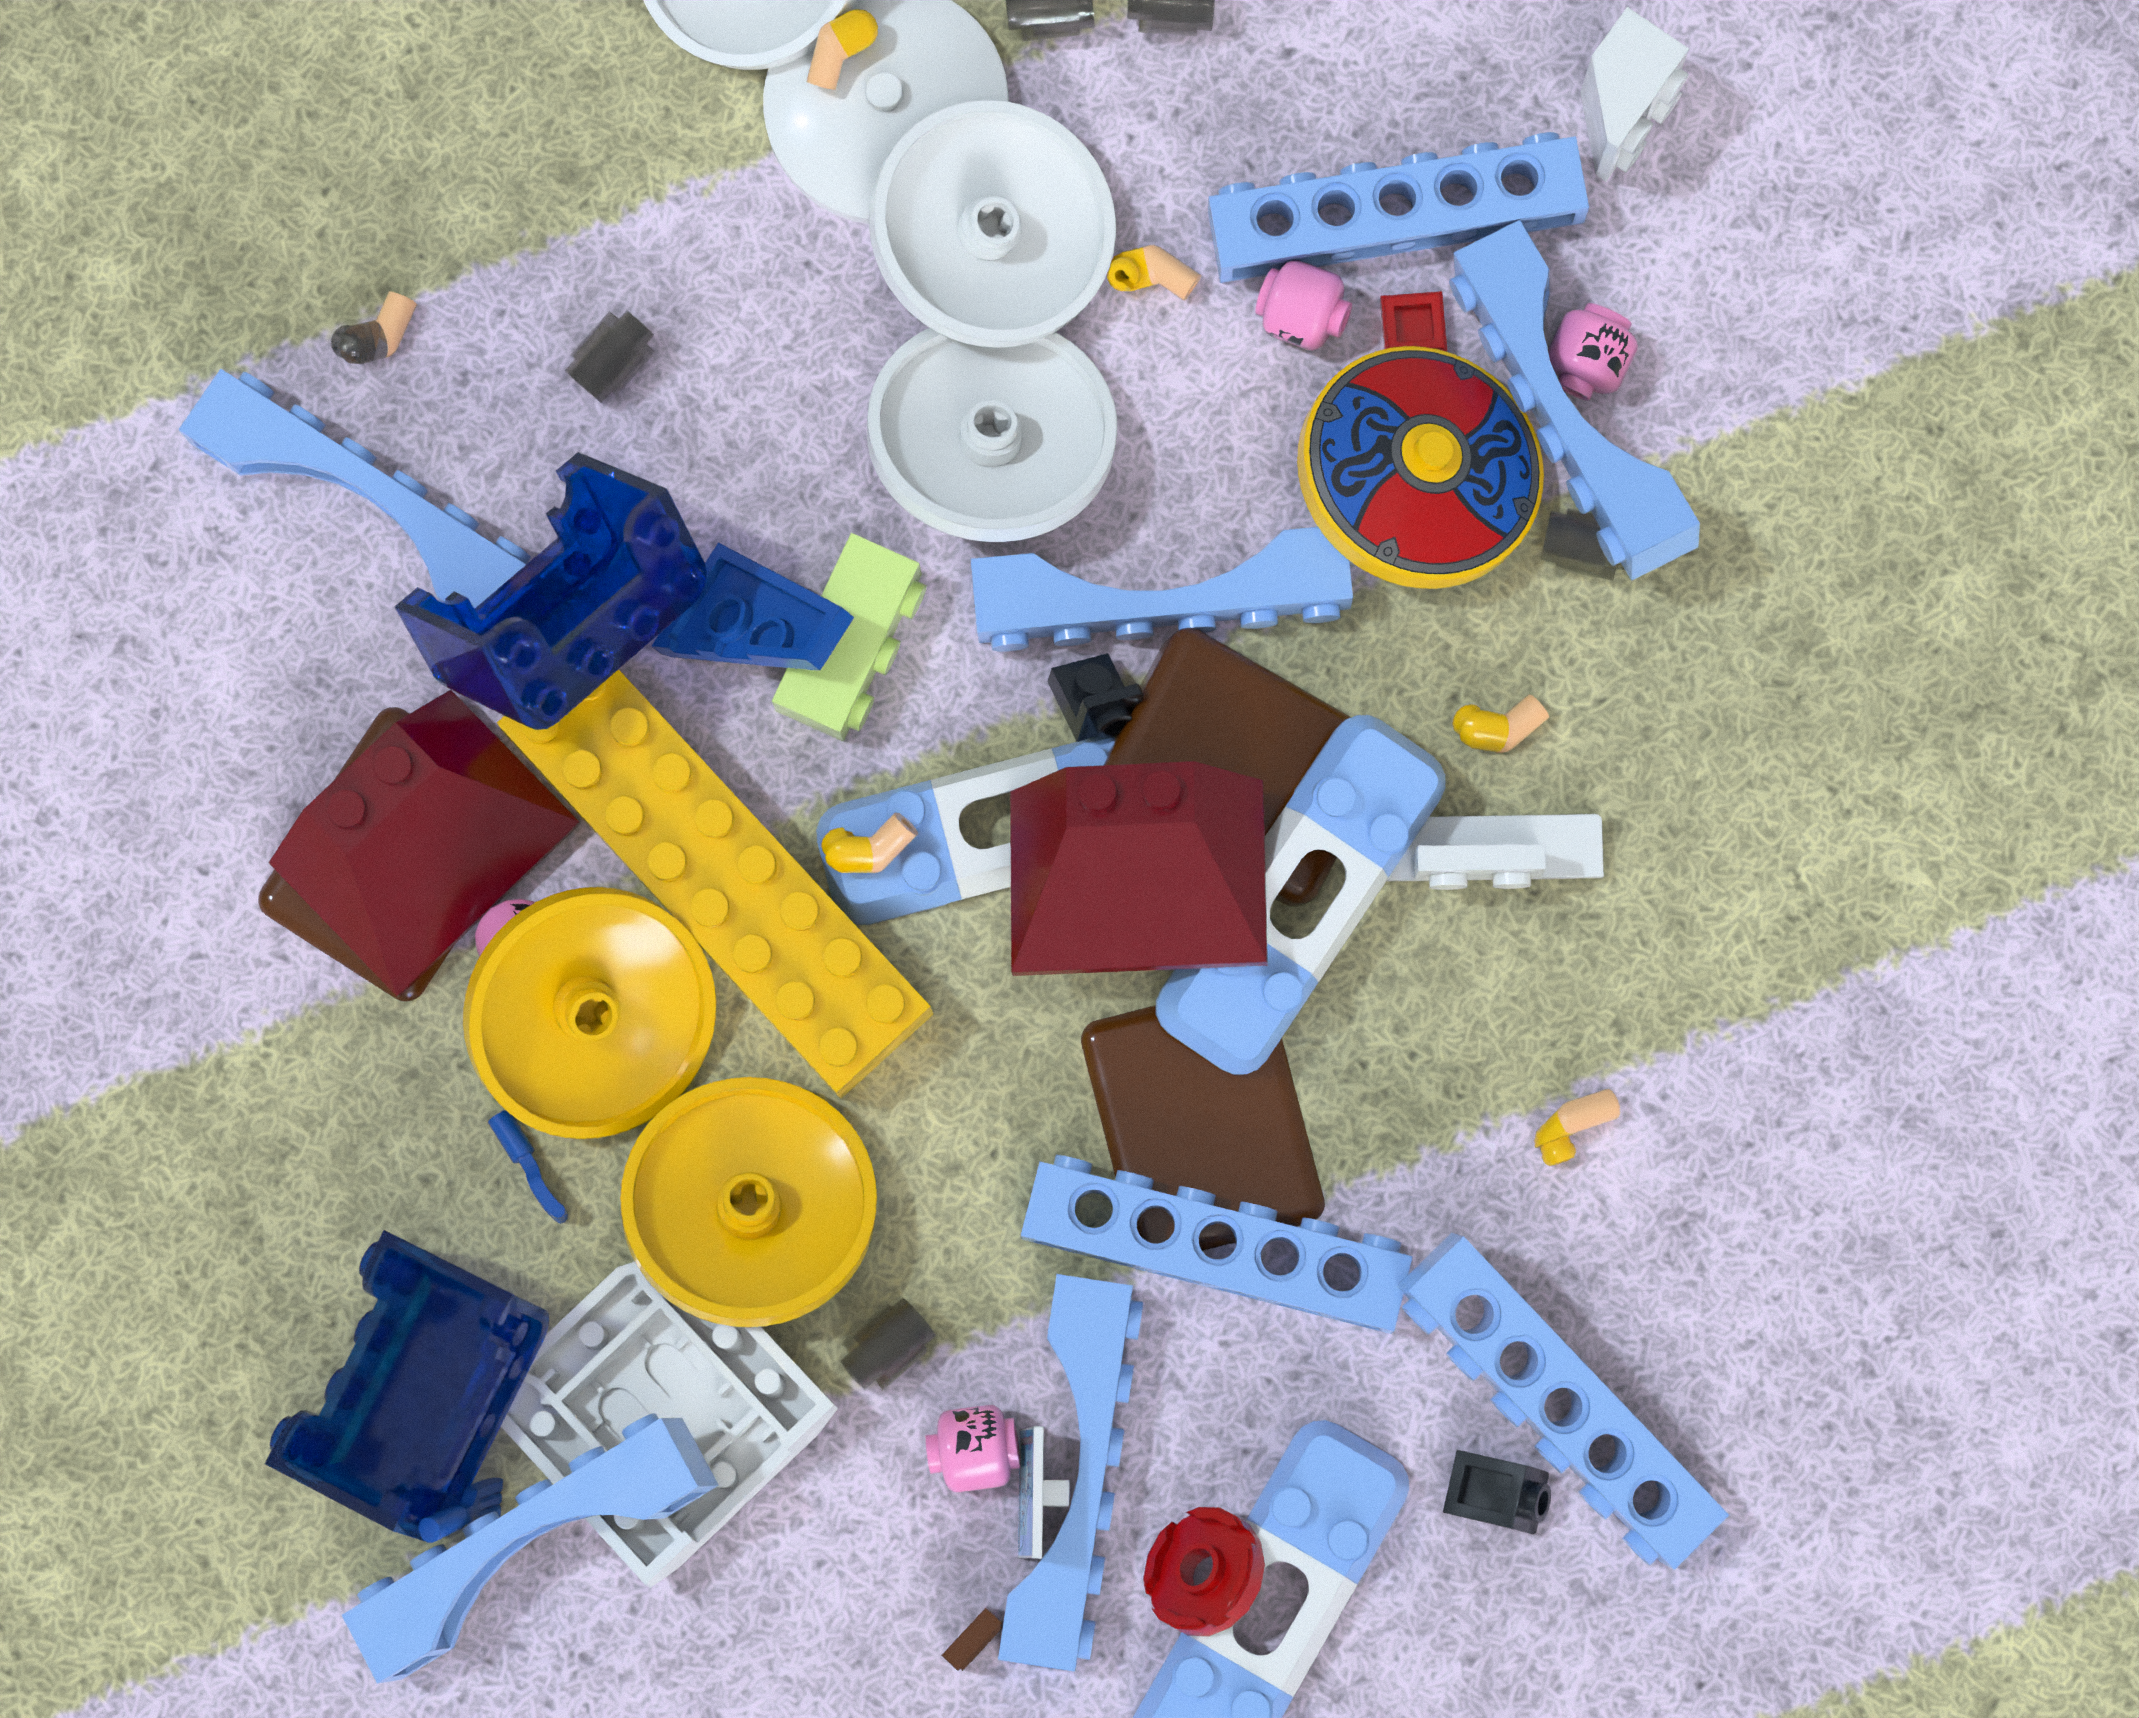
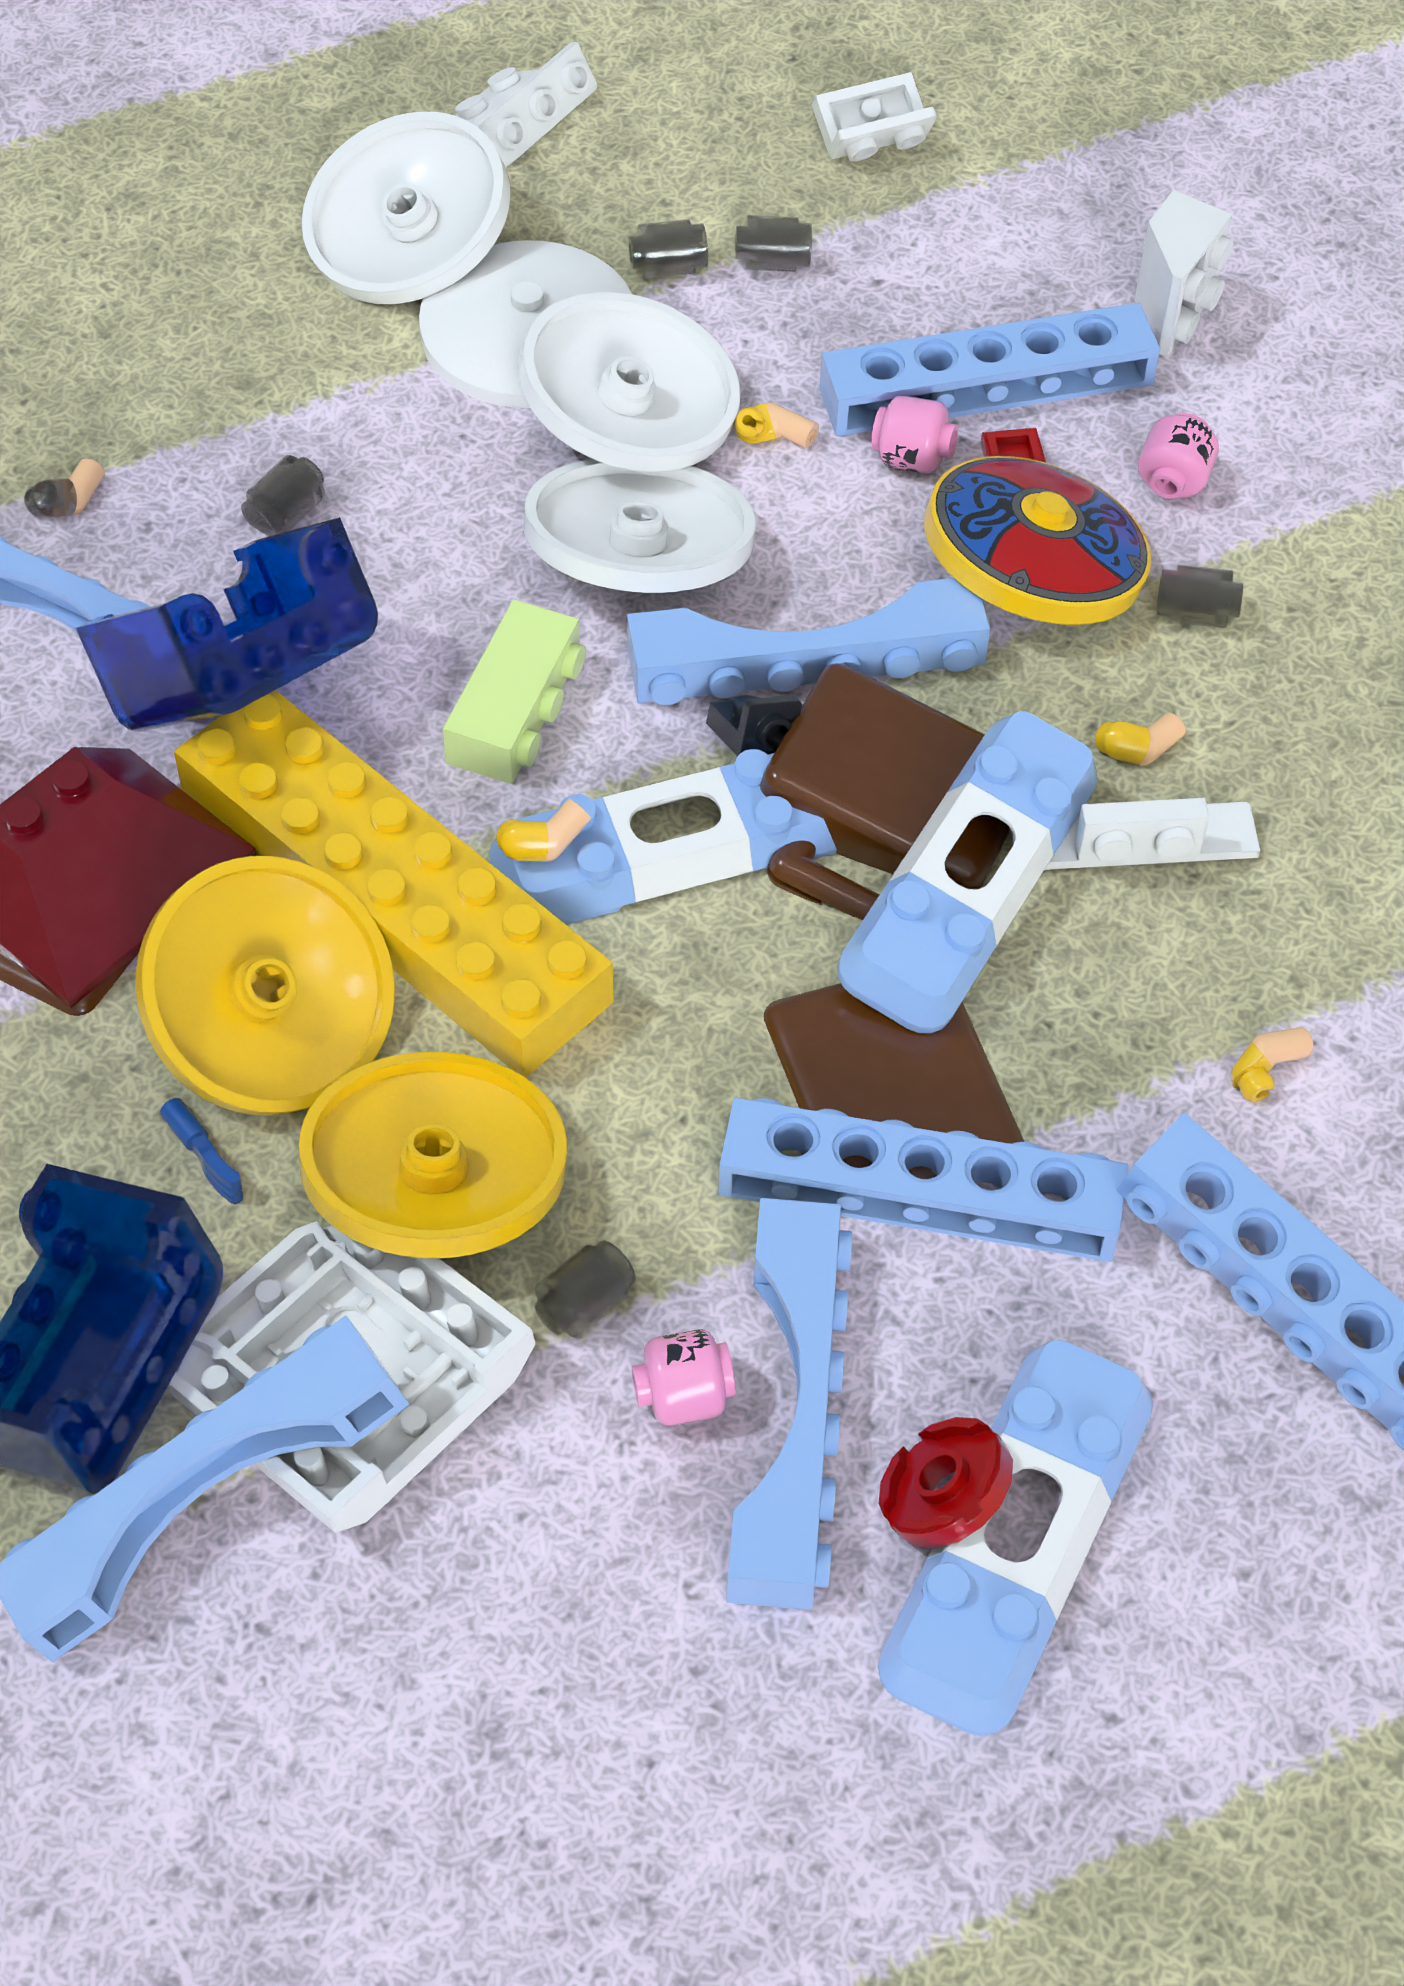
camera: 10 degrees left, 25 degrees down
(476, 1502) = (111, 1457): blue piece -> none
(754, 619) = (421, 666): blue wing -> none
(839, 41) = (484, 257): arm -> none
(973, 1639) = (697, 1571): reddish brown tile -> none
(1035, 1493) = (757, 1405): piece -> none
(1137, 870) = (809, 826): dark red slope -> none
(1497, 1492) = (1249, 1394): black bracket -> none
(1634, 502) = (1236, 534): light blue arch -> none

